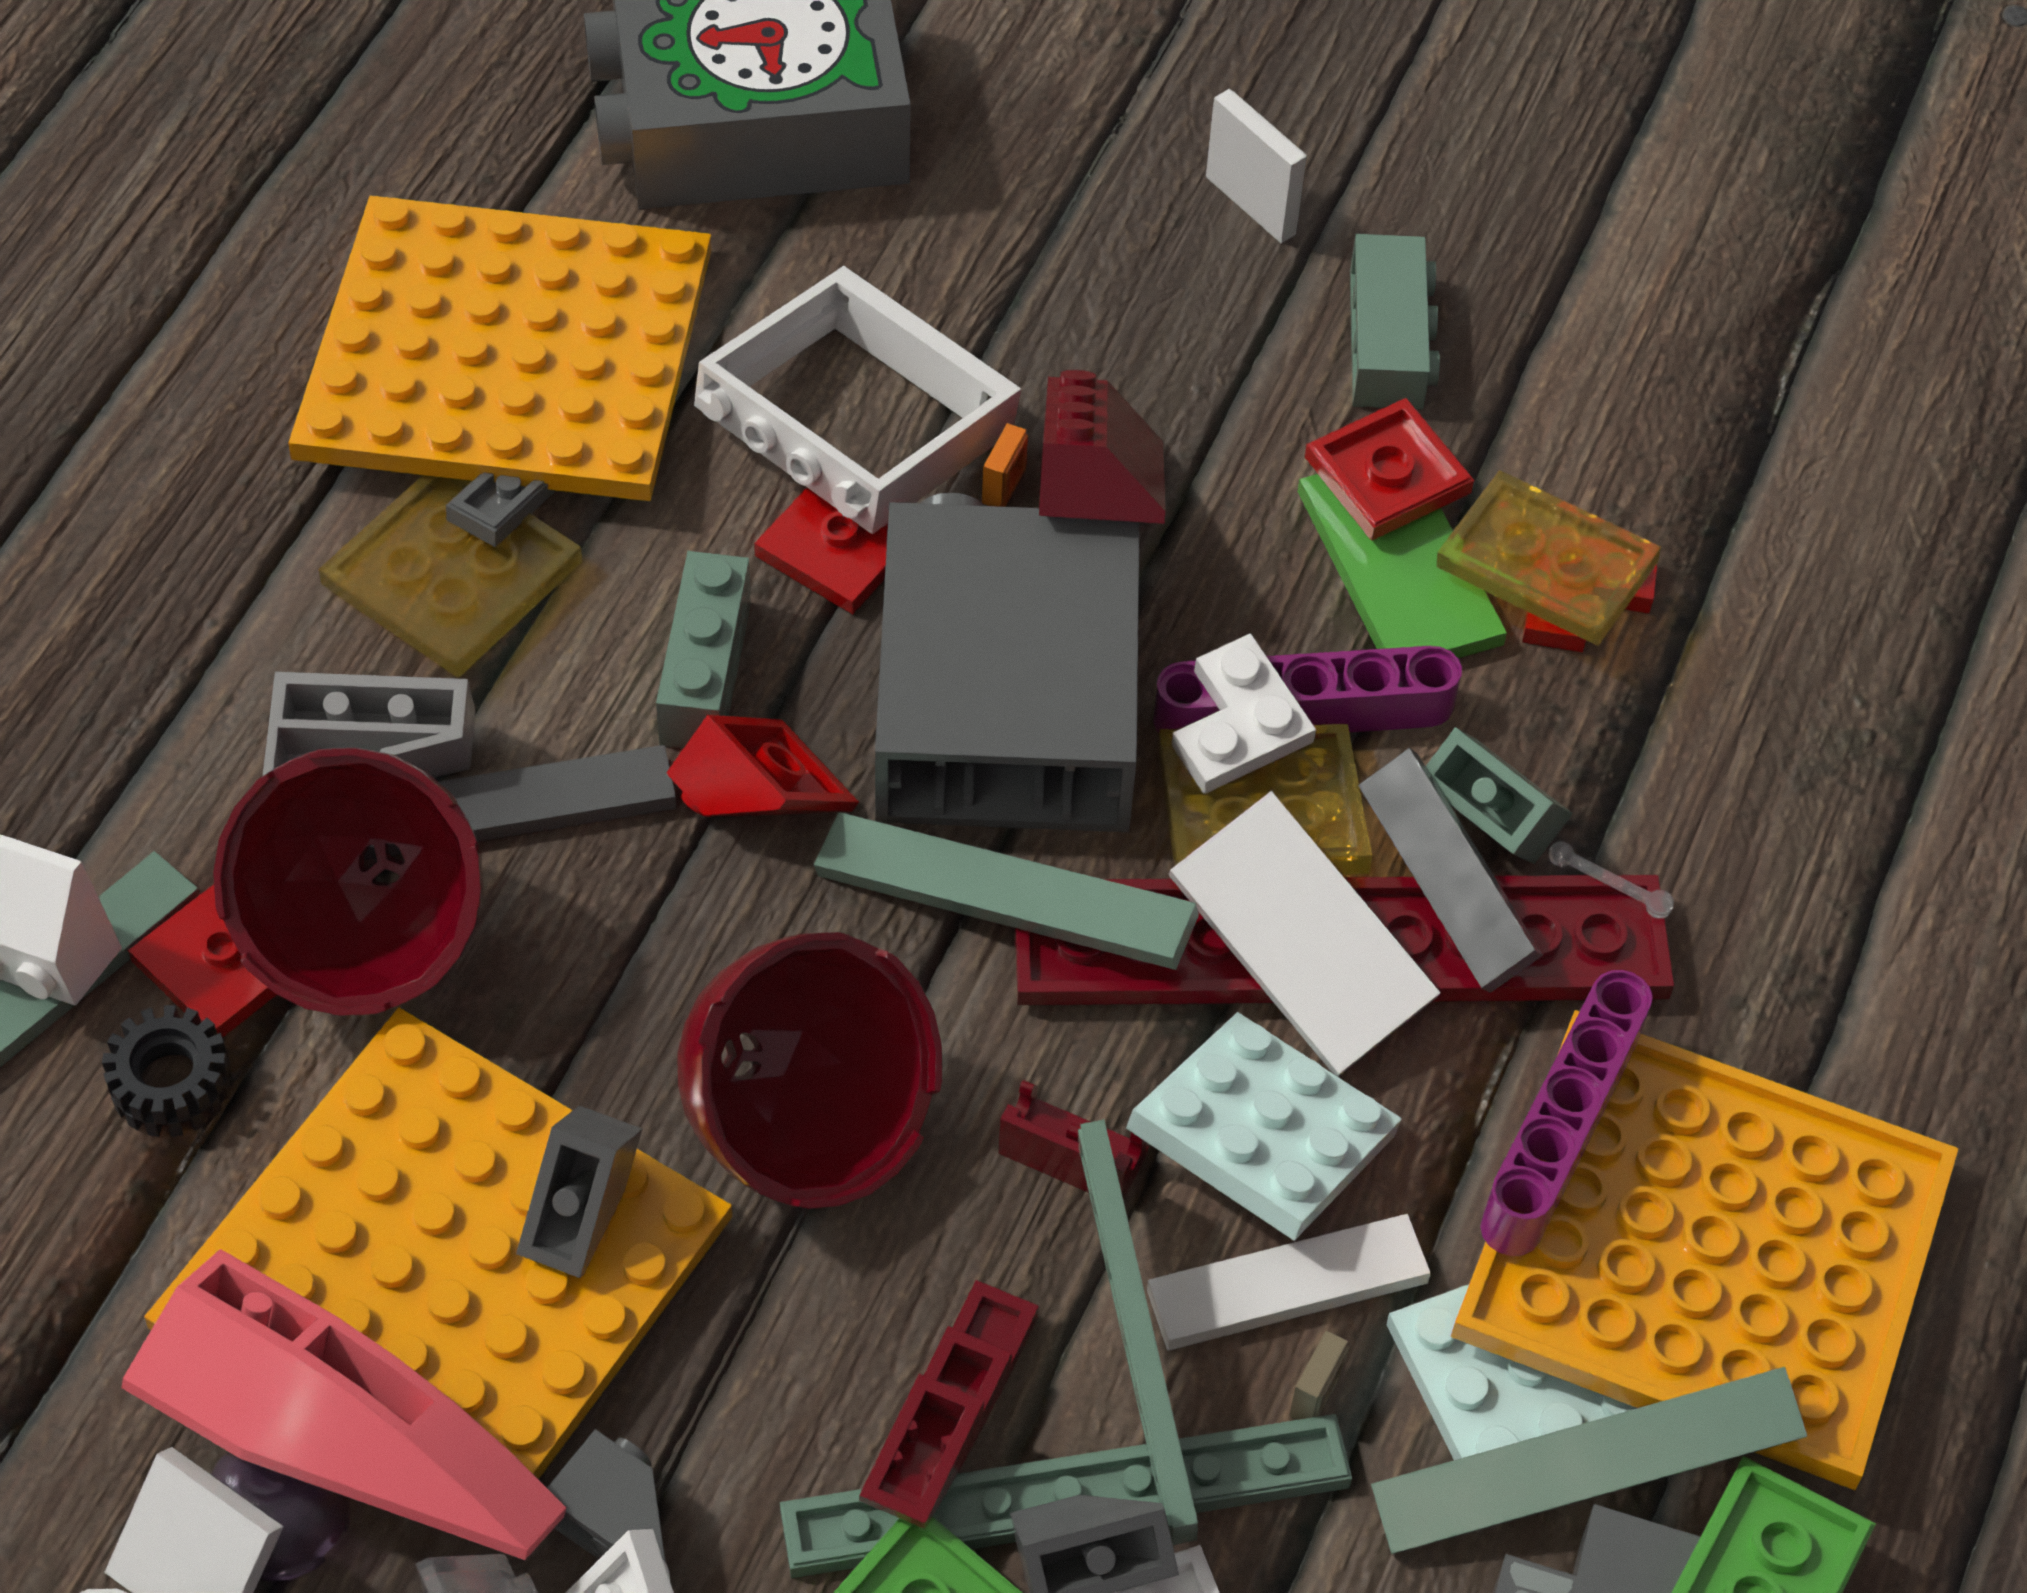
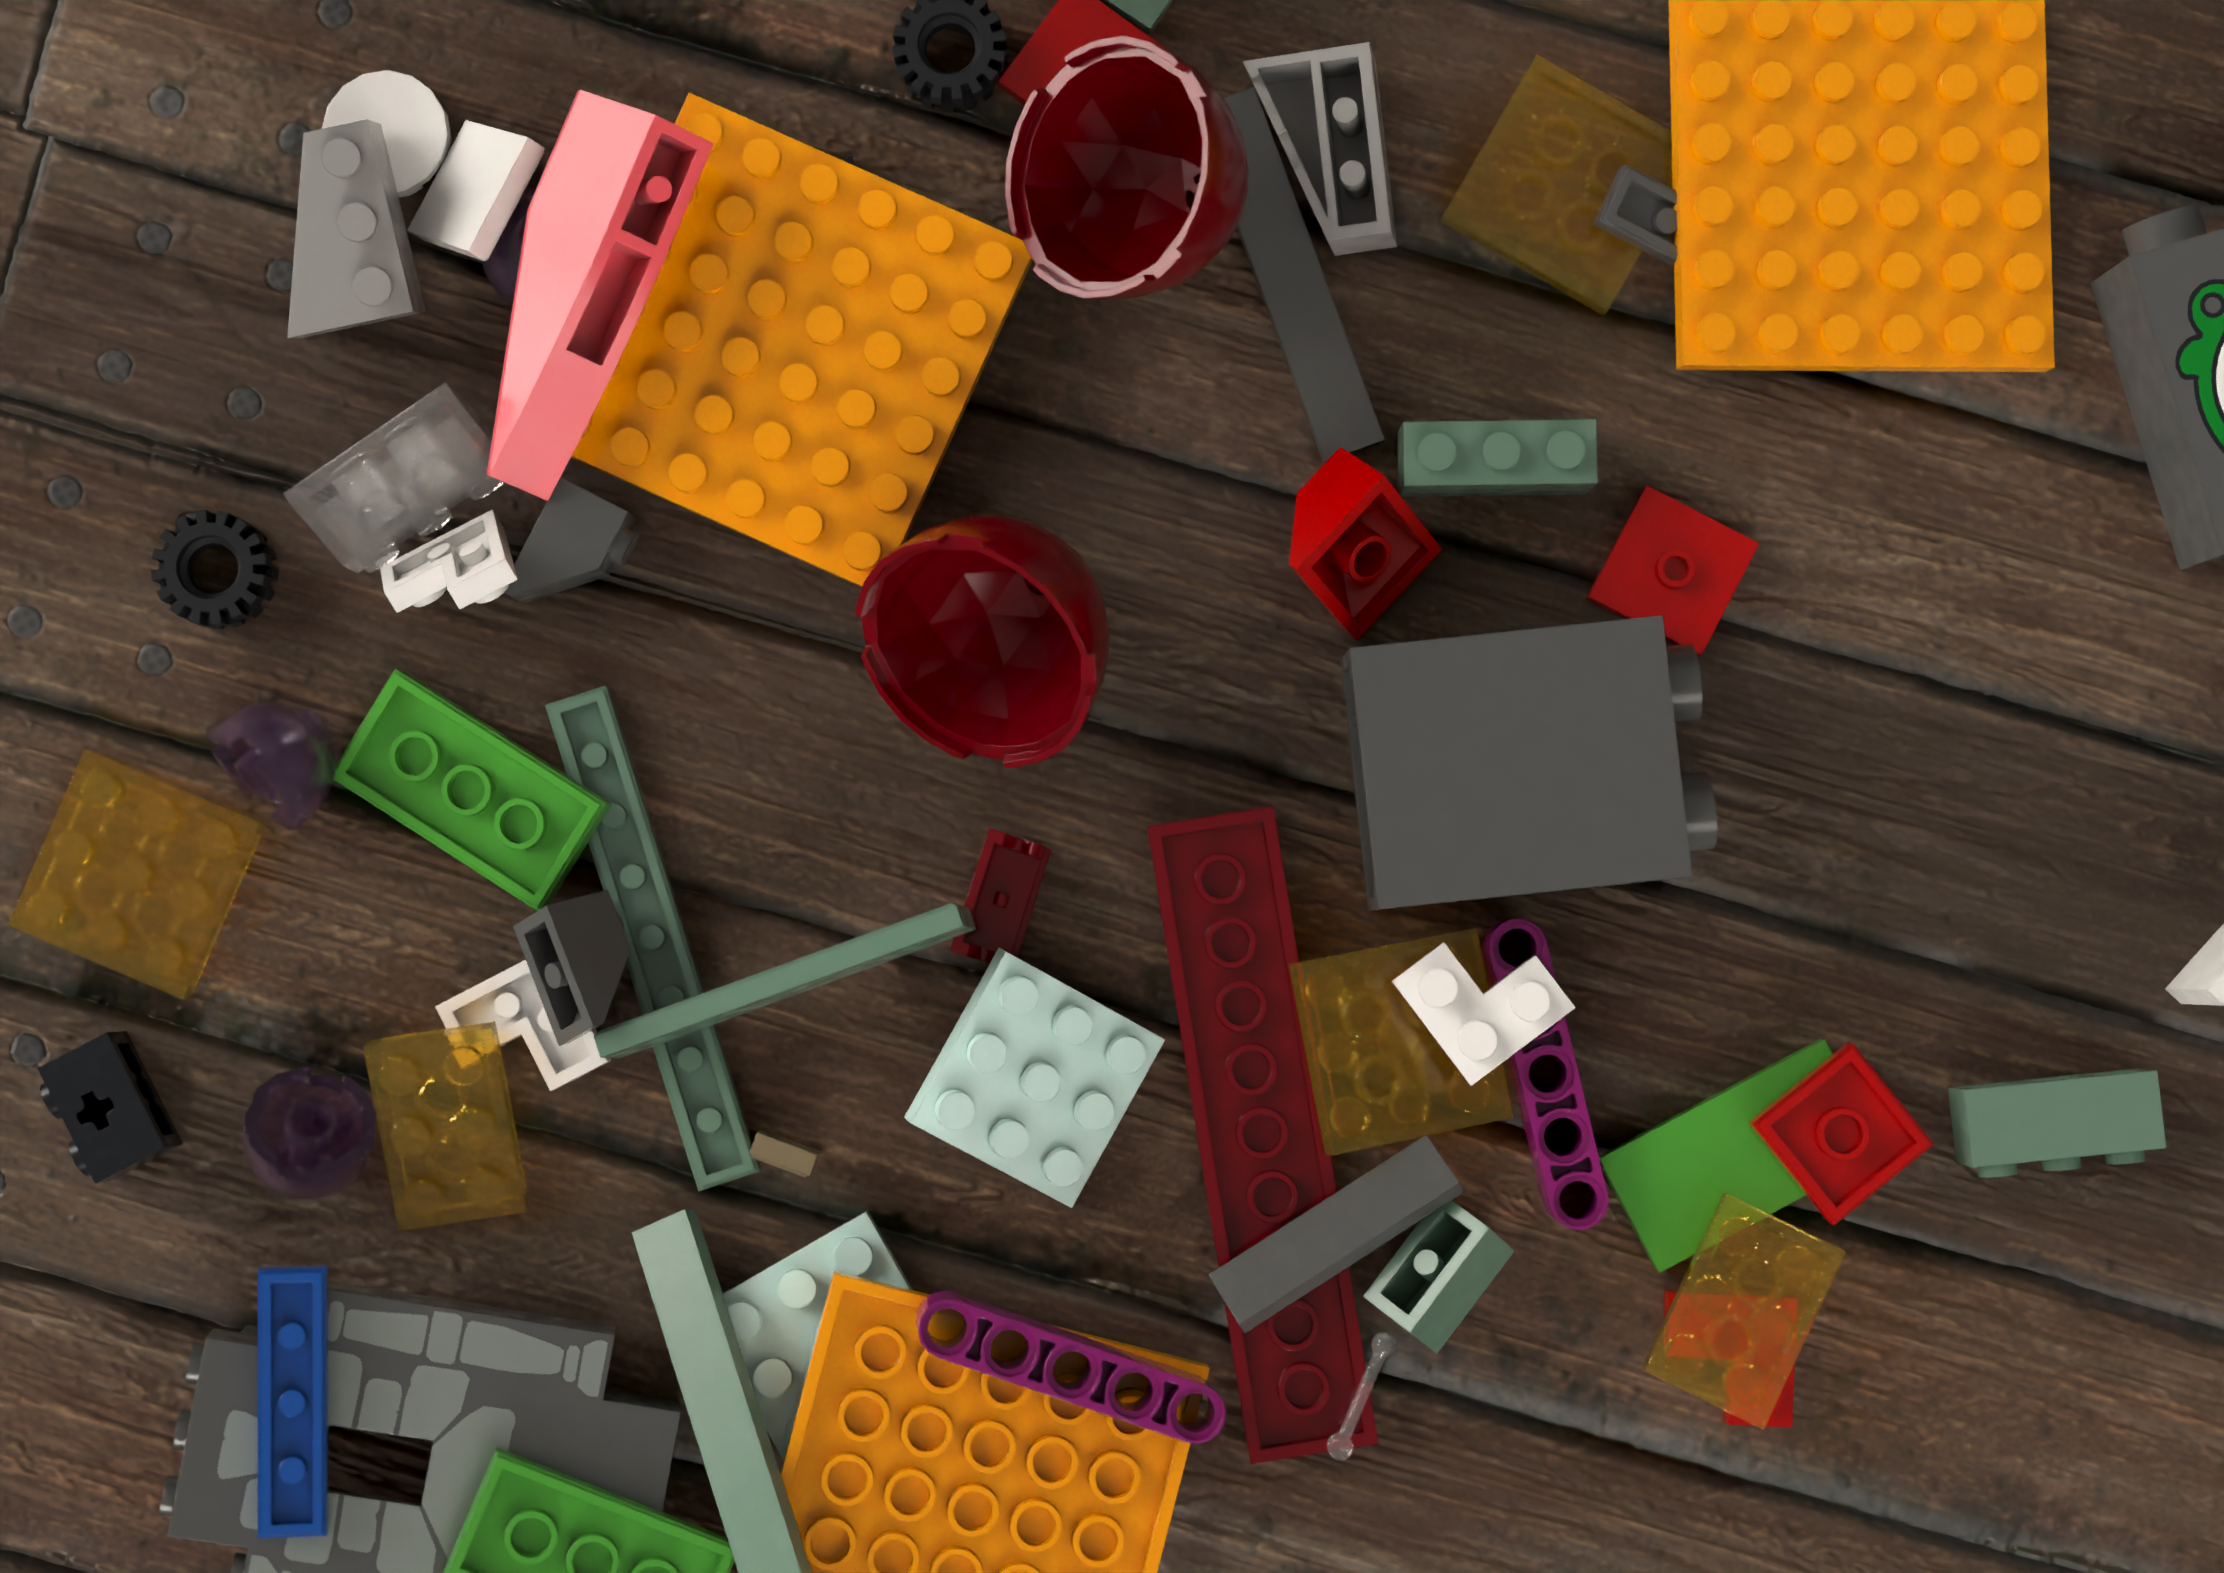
camera: 85 degrees right, 30 degrees up
(578, 1189) = (849, 451): dark grey slope -> none
(895, 339) = (1926, 609): white window -> none
(949, 1405) = (708, 822): dark red slope -> none
(1004, 466) = (1785, 728): orange tile -> none
(1007, 890) = (1252, 800): sand green tile -> none
(1098, 454) = (1776, 827): dark red slope -> none
(1287, 1281) = (879, 1099): white tile -> none
(1304, 934) = (1238, 1094): white tile -> none

